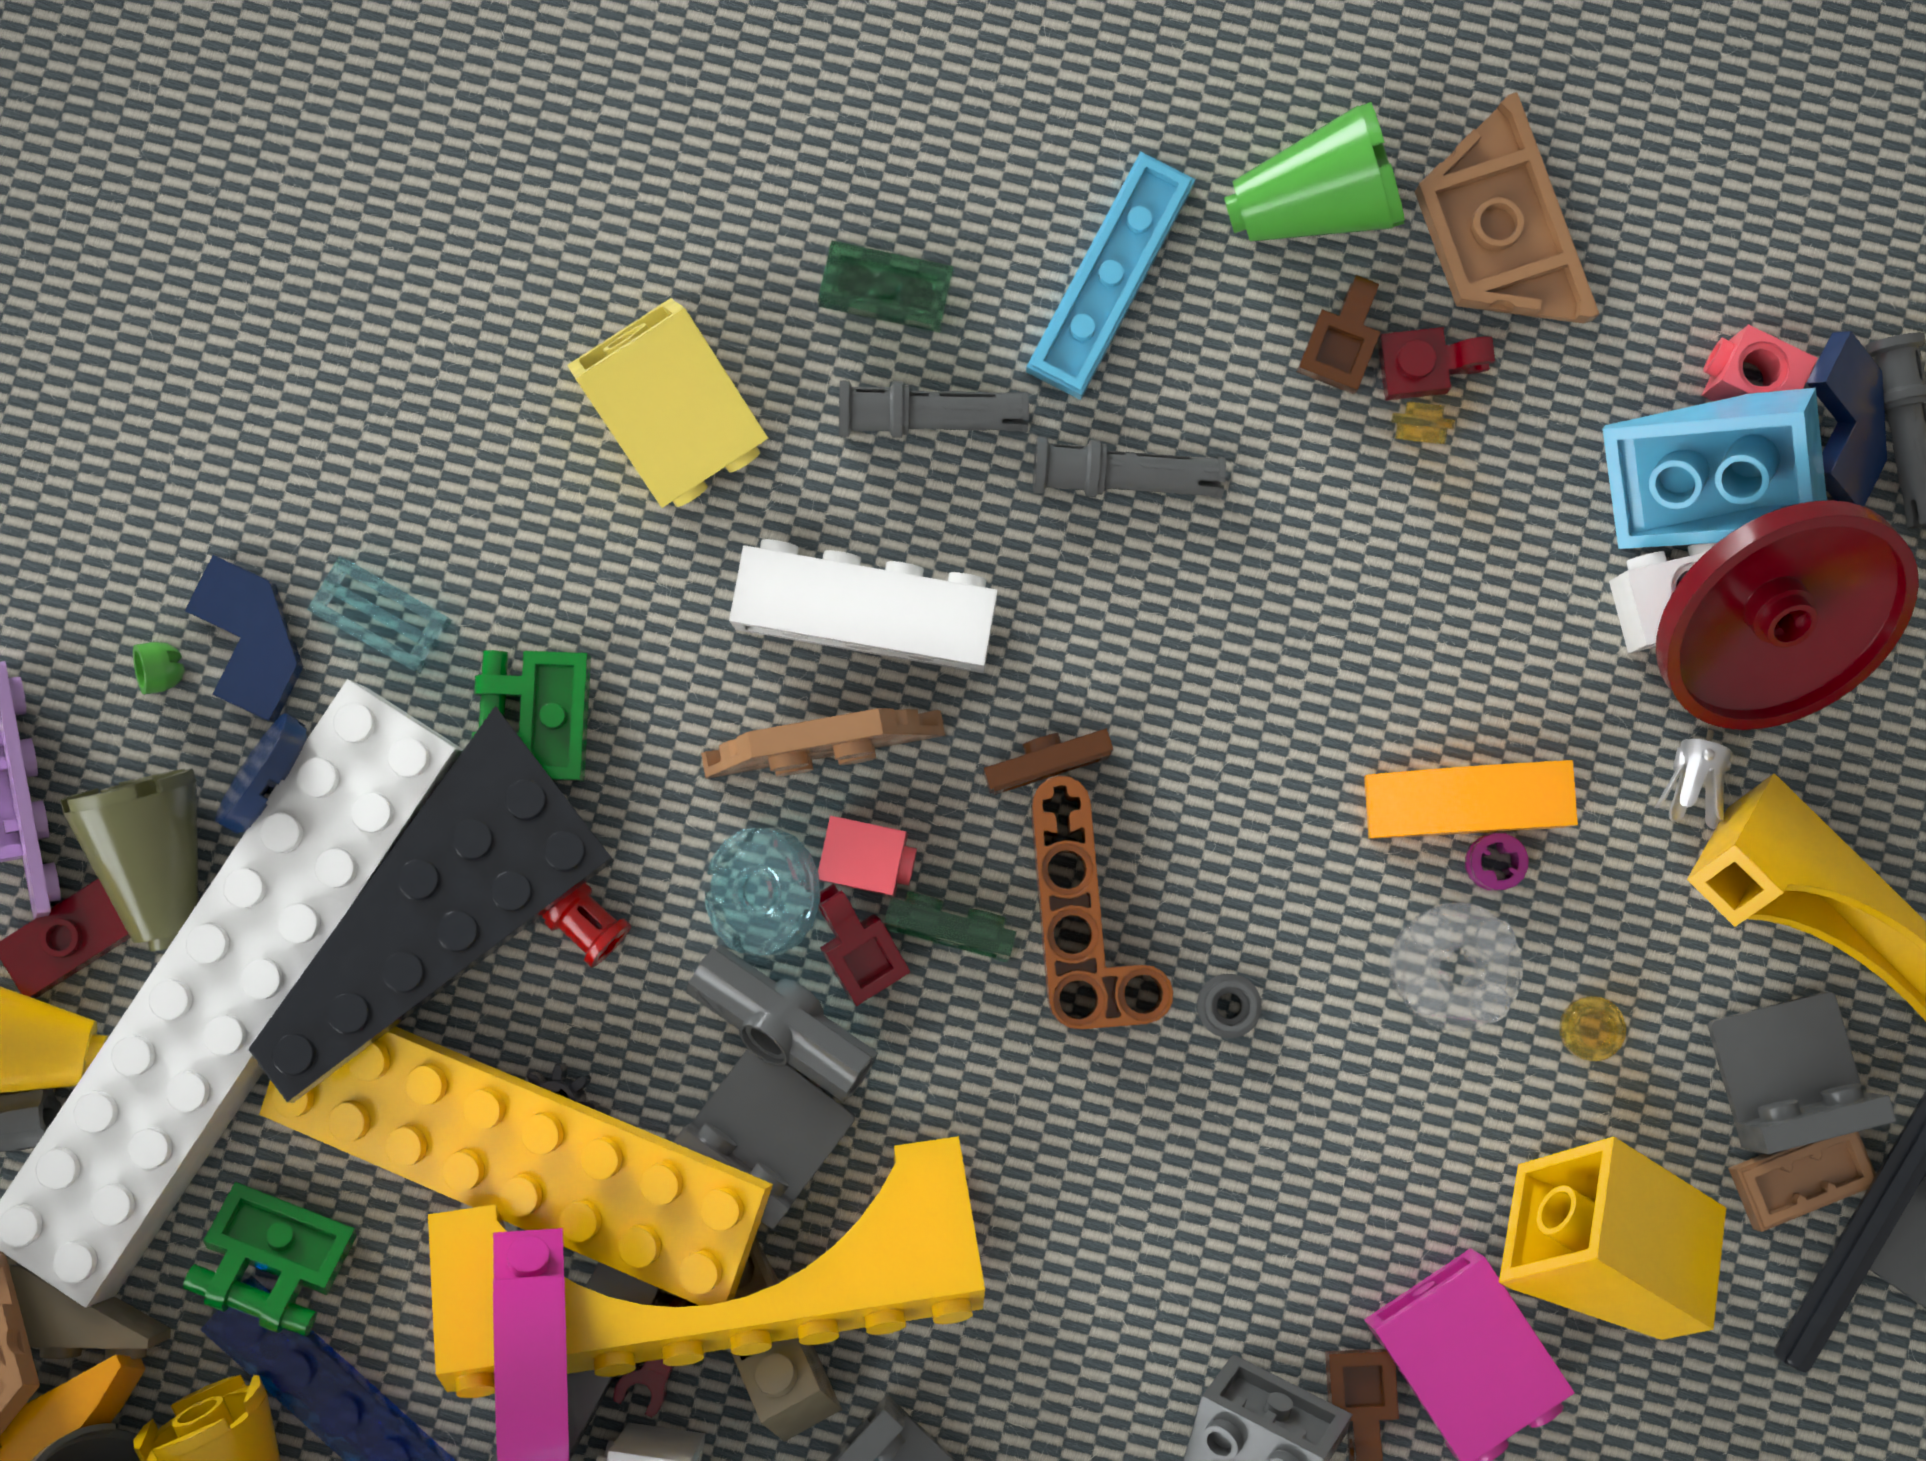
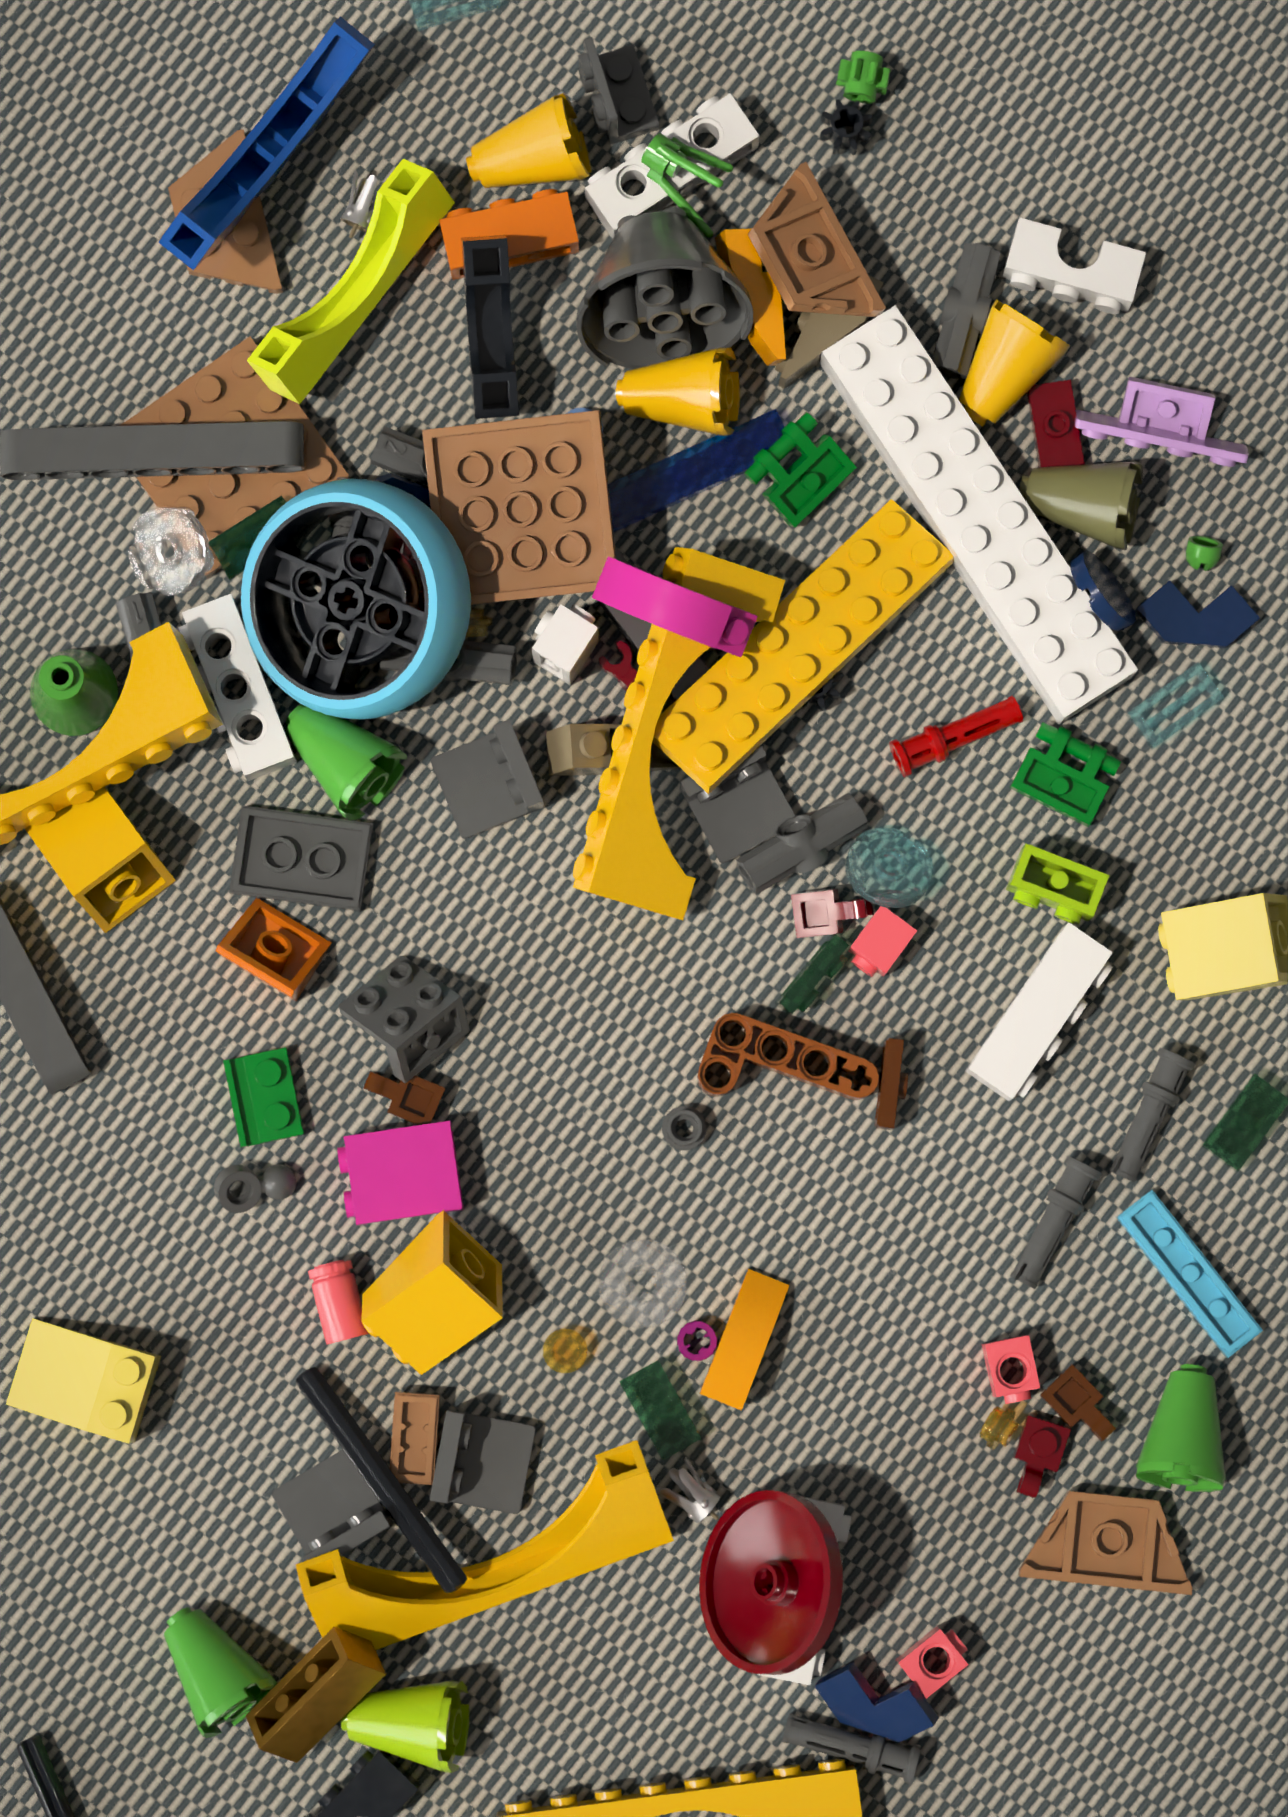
camera: 110 degrees right, 0 degrees up
(459, 883) = (978, 685): black wing -> none
(683, 660) = (1056, 883): none -> lime brick
(847, 737) = (961, 962): medium nougat wing -> none
(1321, 461) = (1000, 1350): none -> coral brick
(1610, 868) = (660, 1410): none -> clear green plate
(1677, 1370) = (337, 1301): none -> coral piece
(1713, 467) = (885, 1597): medium azure slope -> none

